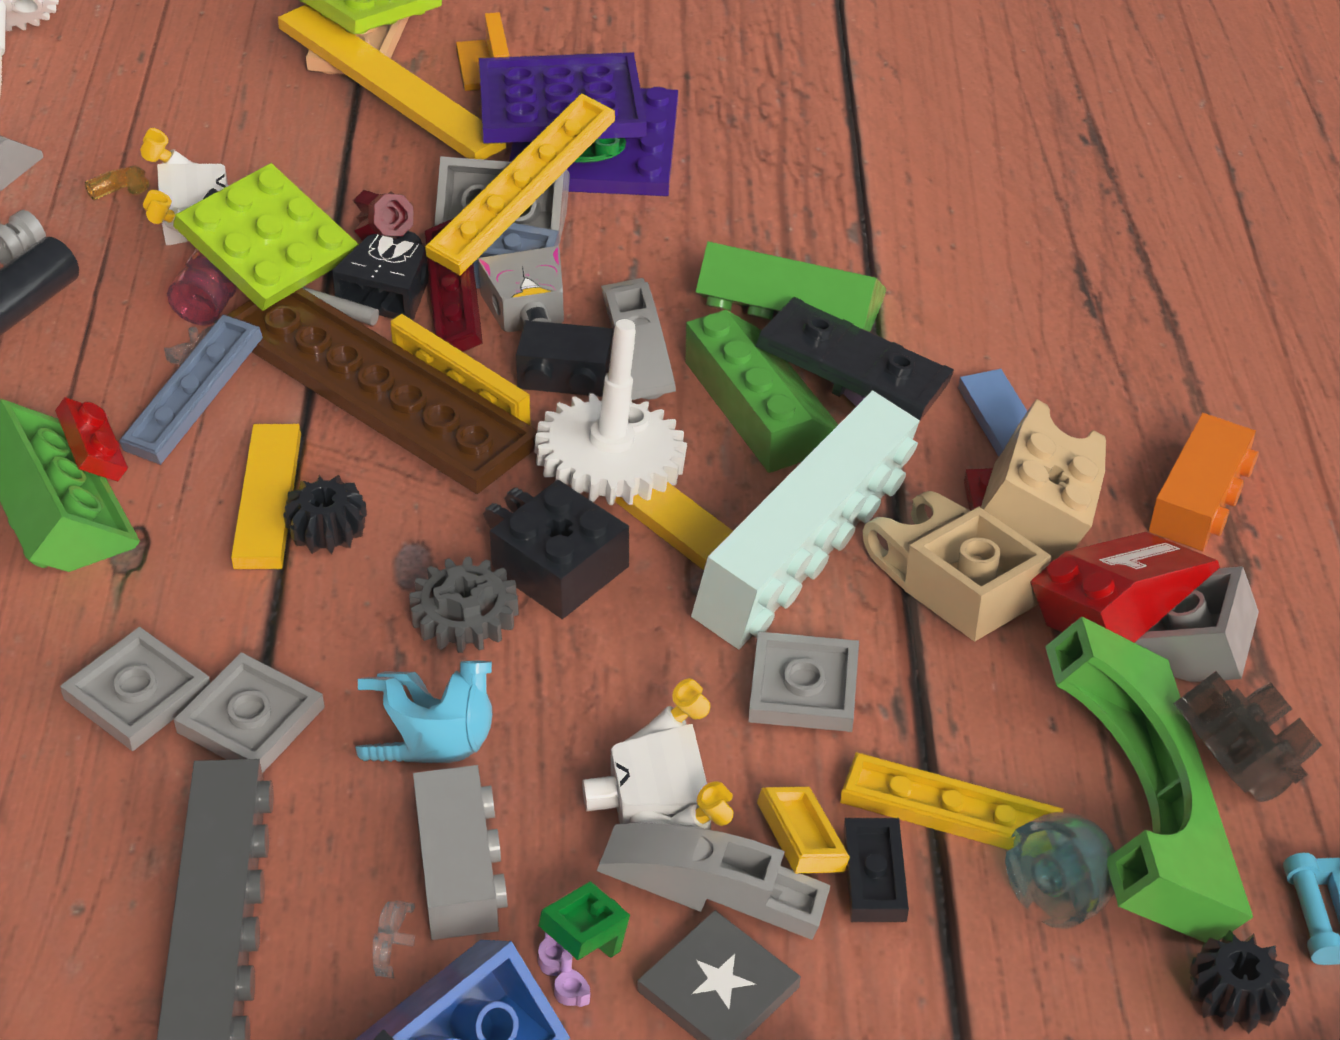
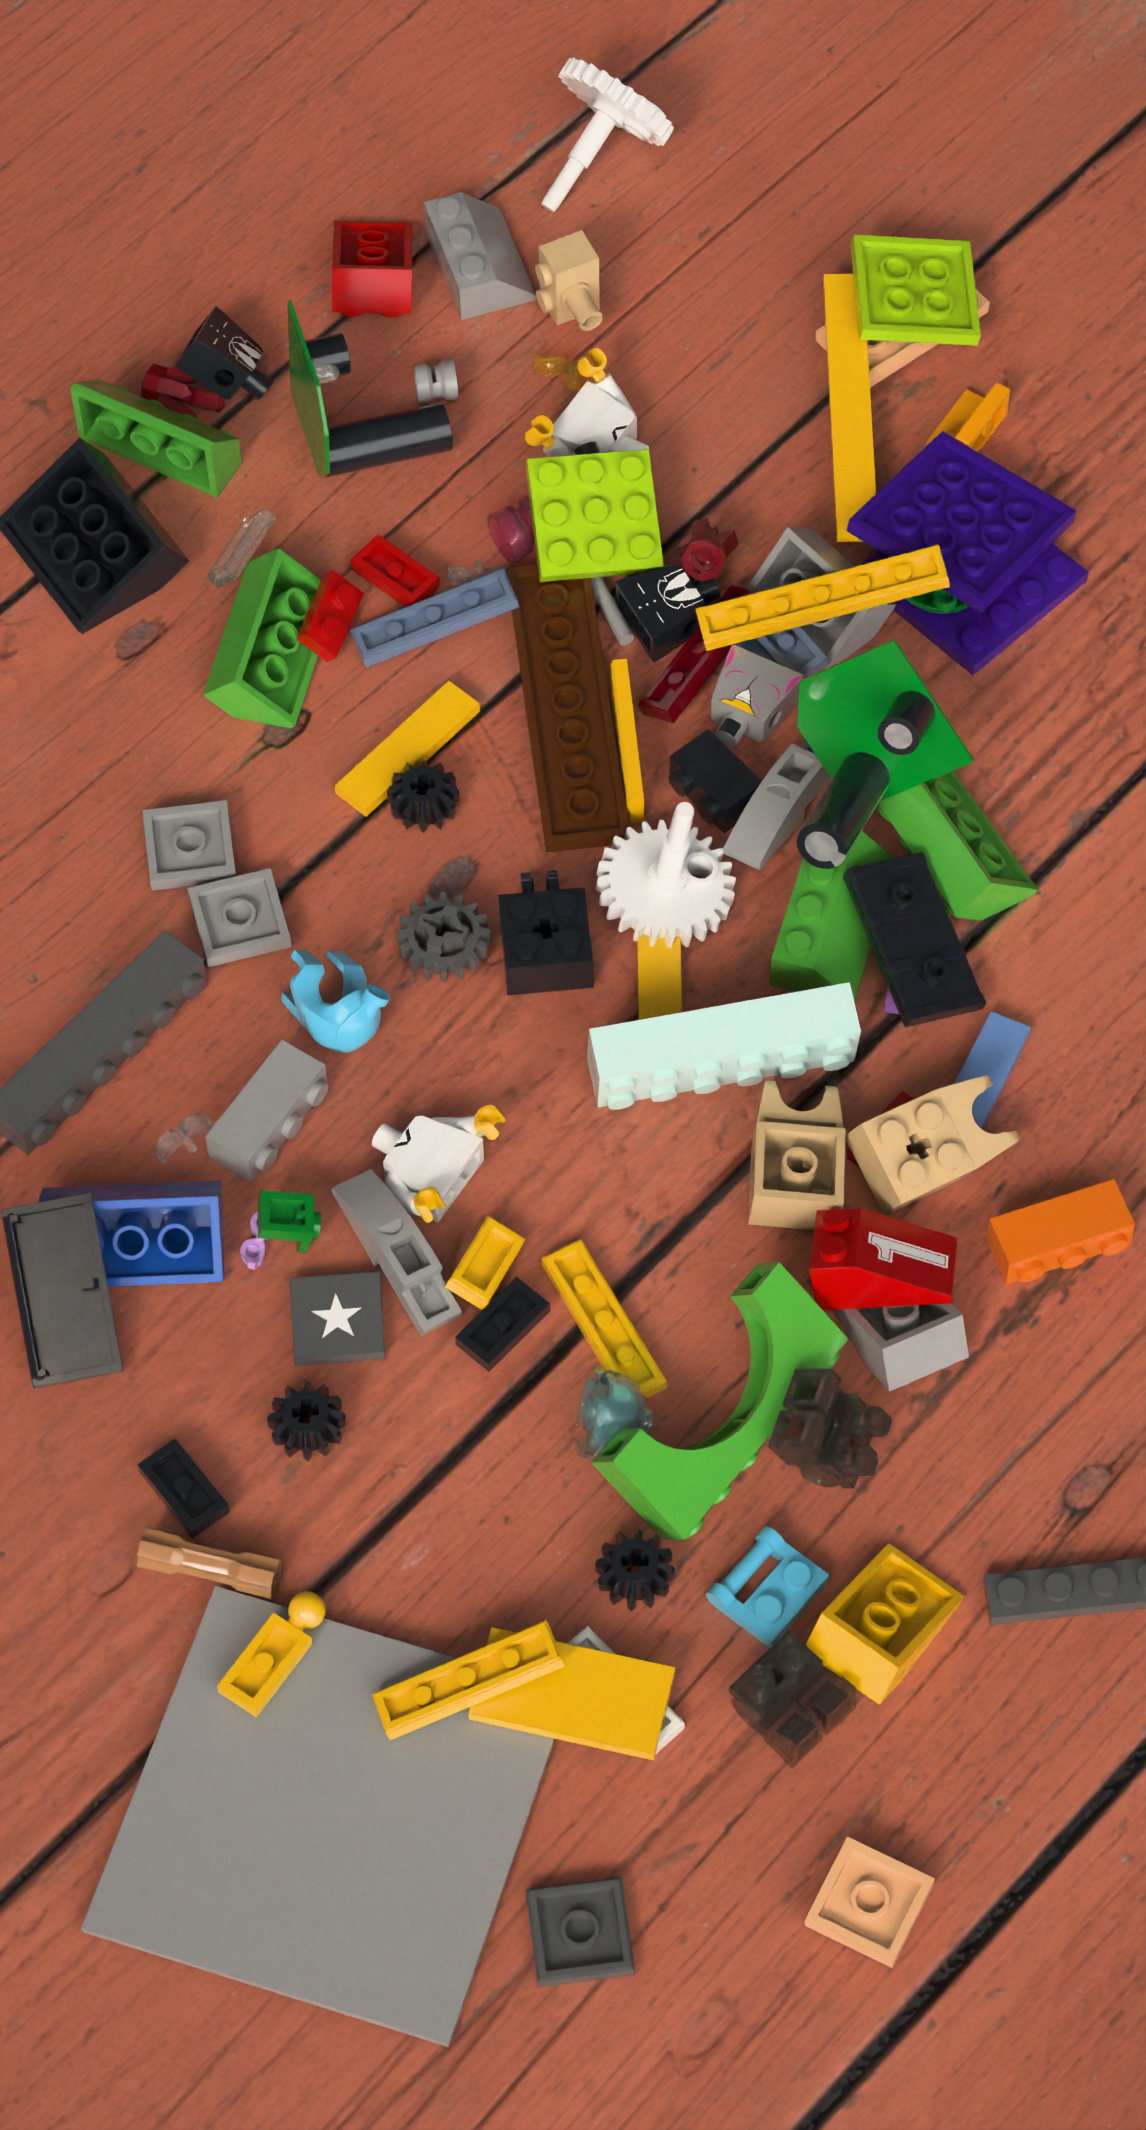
camera: 45 degrees right, 15 degrees up
(71, 114) = (570, 281): none -> tan brick
(117, 379) = (394, 572): none -> red plate
(686, 218) = (875, 738): none -> piece
(804, 681) = (603, 1164): light grey plate -> none

